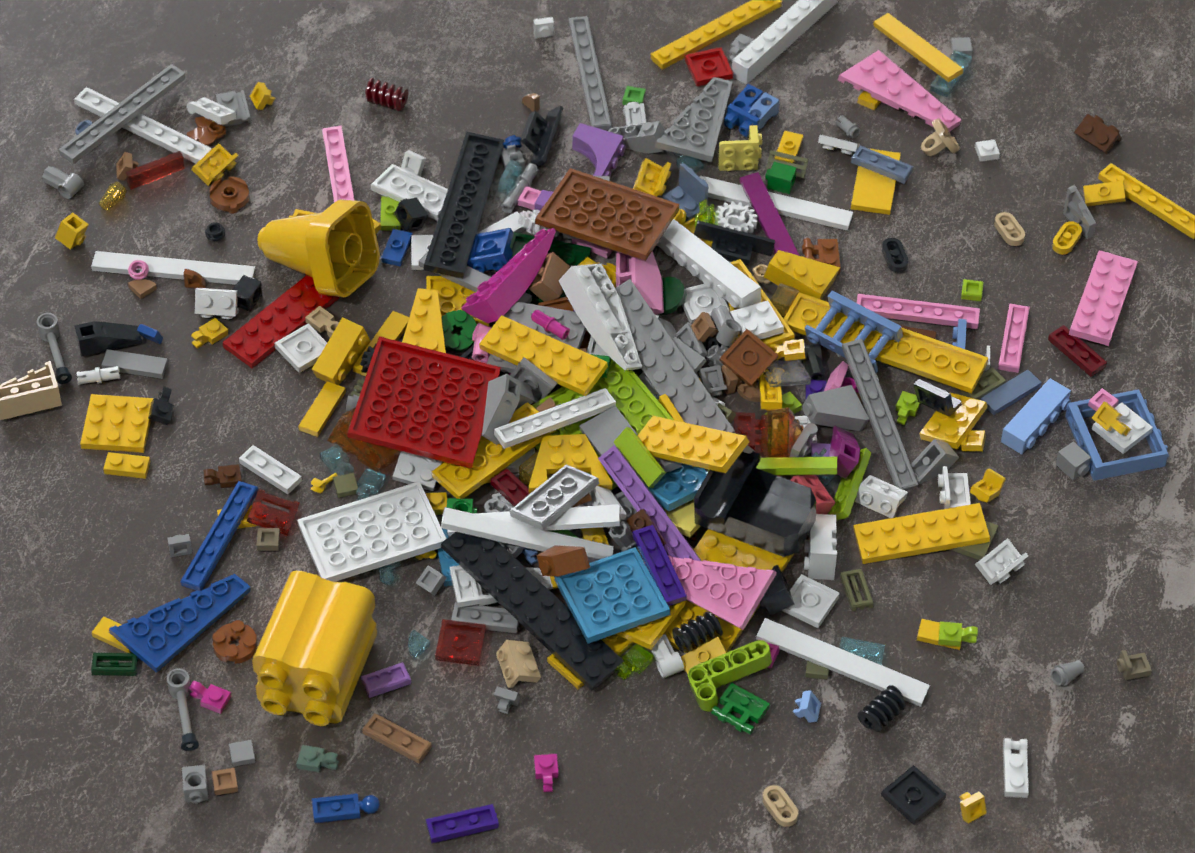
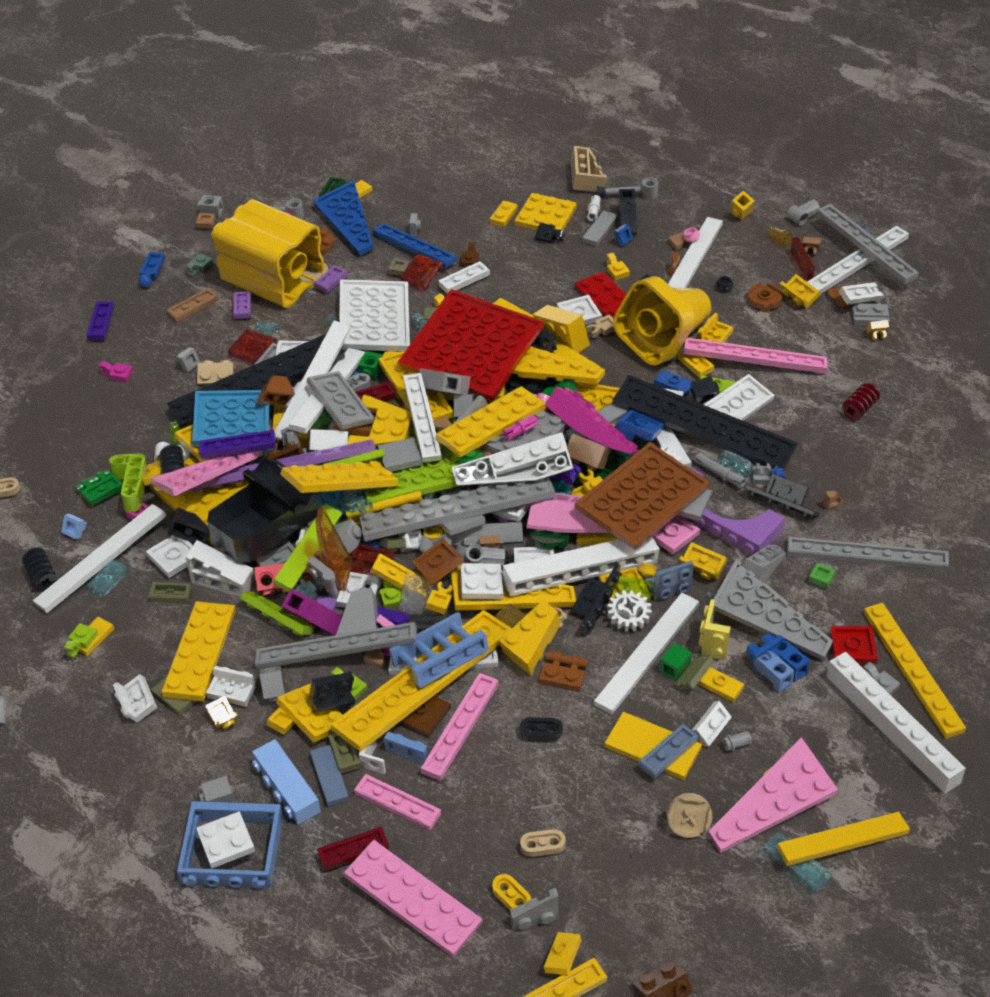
camera: 110 degrees right, 5 degrees down
(216, 302) = (638, 267): white bracket -> none
(413, 162) = (769, 407): white tile -> none
(528, 198) = (709, 472): bright pink plate -> none
(543, 27) = (933, 527): white plate -> none
(634, 113) = (794, 568): white bracket -> none
(767, 213) = (618, 637): magenta tile -> none
(880, 496) = (257, 633): white bracket -> none
(962, 44) = (843, 891): light grey tile -> none
(972, 290) = (474, 785): lime tile -> none
(987, 150) = (669, 863): white plate -> none
(1096, 401) = (260, 829): bright pink plate -> none
(1109, 418) = (229, 814): yellow plate -> none

